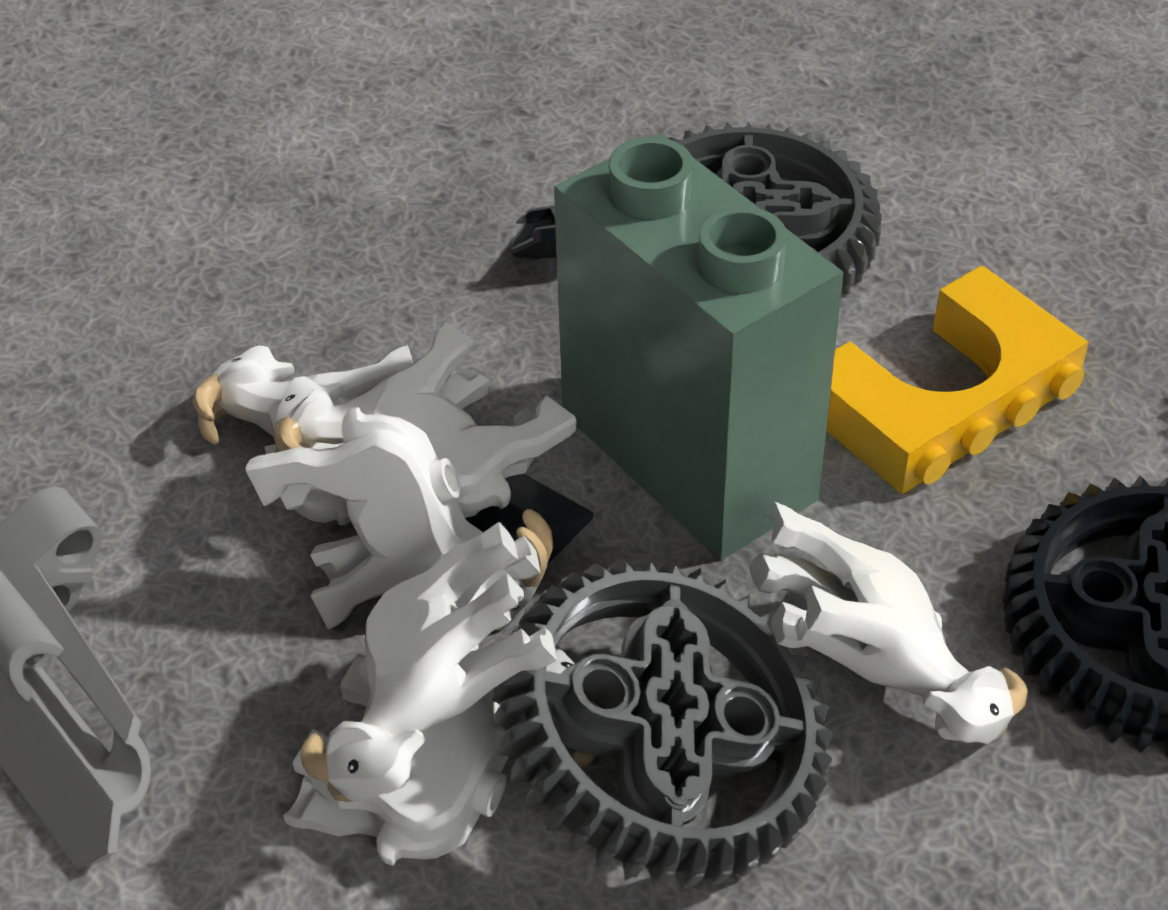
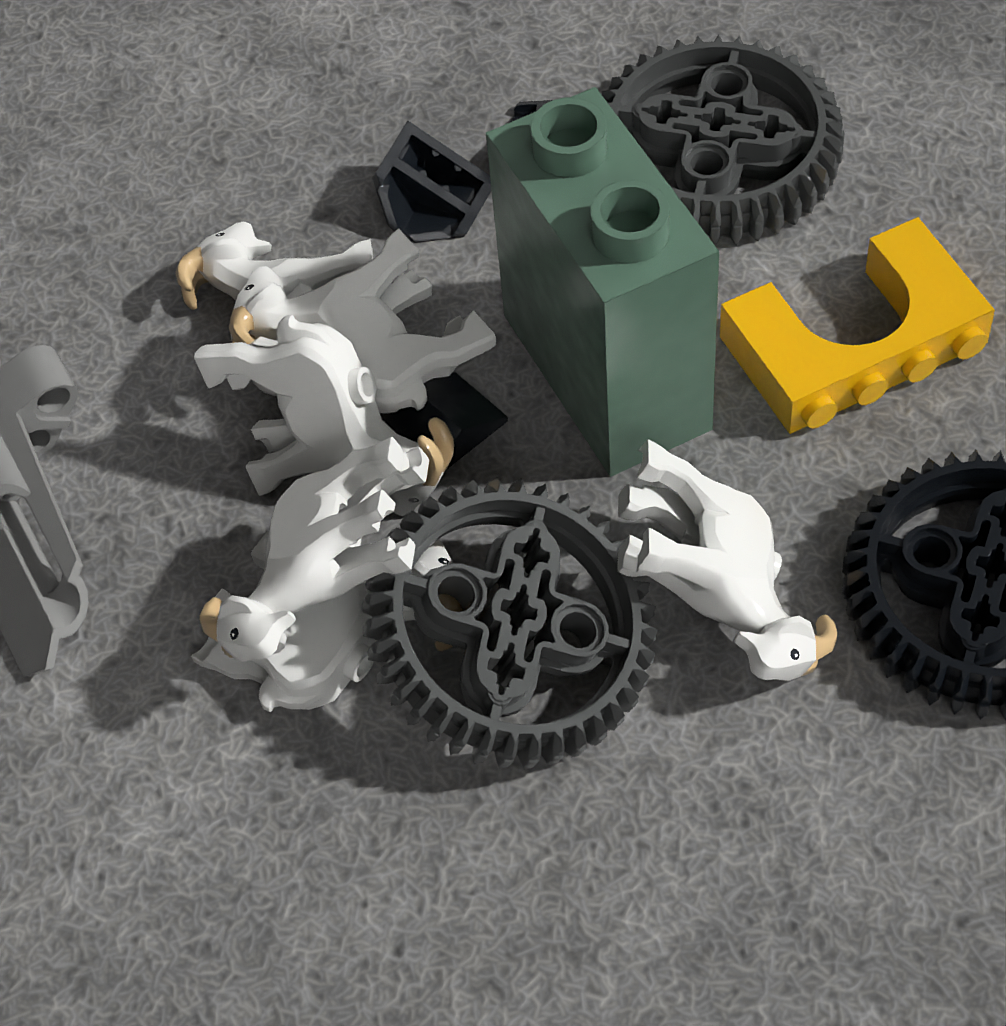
camera: 15 degrees right, 10 degrees up
(456, 288) = (429, 188): none -> black slope

